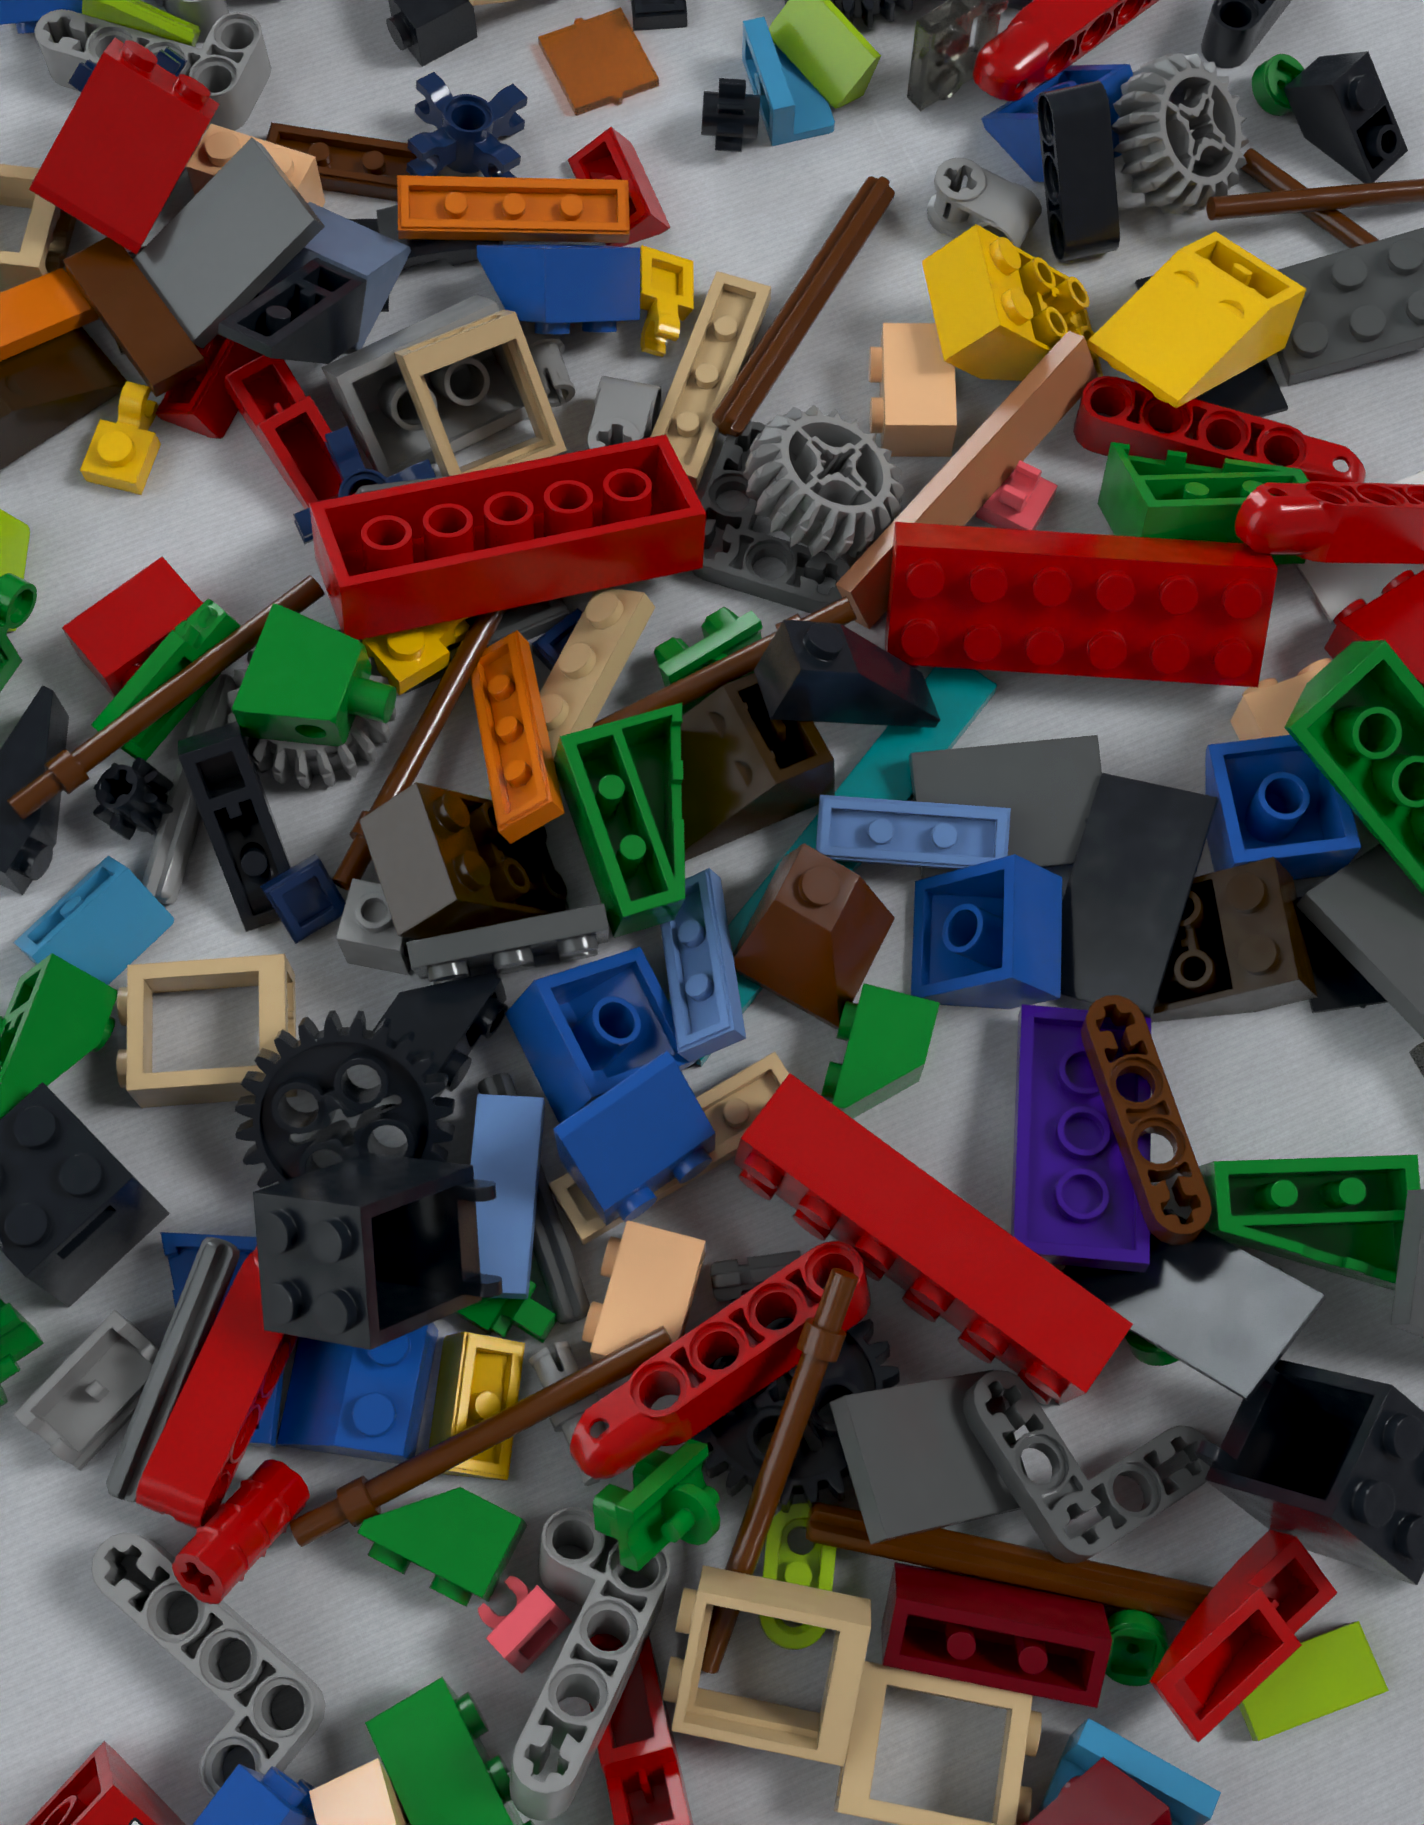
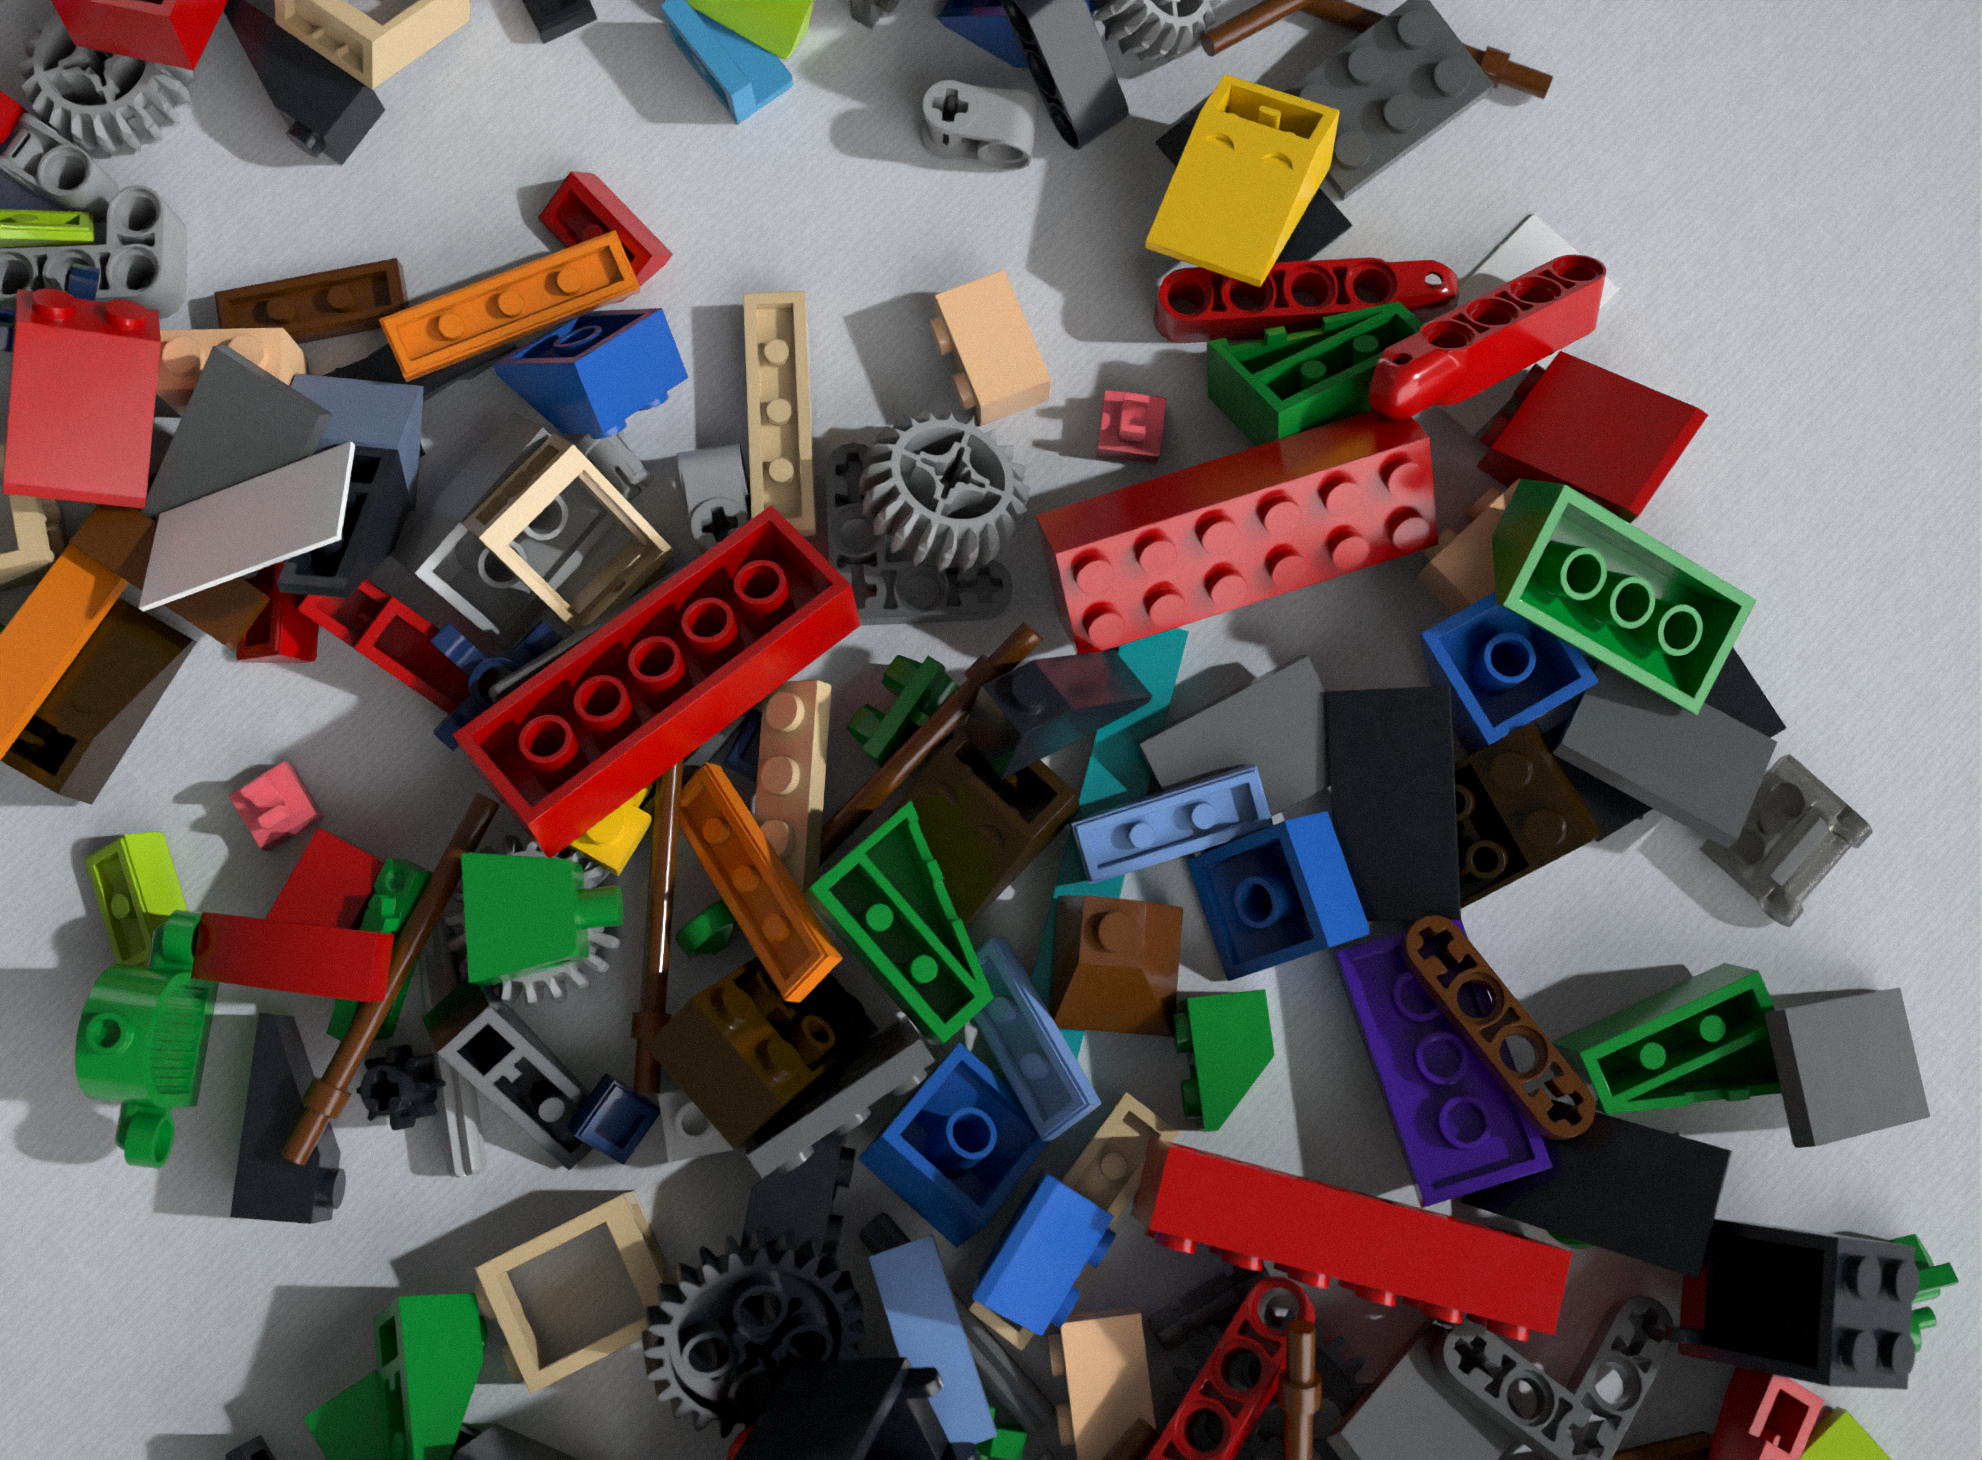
camera: 25 degrees left, 10 degrees up
(96, 642) = (293, 957): none -> red slope
(99, 923) = (419, 1230): dark azure panel -> none
(125, 450) = (221, 717): yellow plate -> none
(132, 537) = (276, 806): none -> coral tile
(215, 286) = (248, 526): none -> white window
(458, 769) = (707, 931): none -> green tile
(465, 131) = (422, 214): dark blue pin -> none
(598, 61) = (522, 93): clear orange piece -> none
(666, 296) = (702, 339): yellow plate -> none
(730, 115) = (686, 112): black gear -> none
(802, 307) = (844, 298): reddish brown axle -> none
(978, 466) = (1085, 418): nougat tile -> none
(1001, 306) = (1054, 237): yellow slope -> none

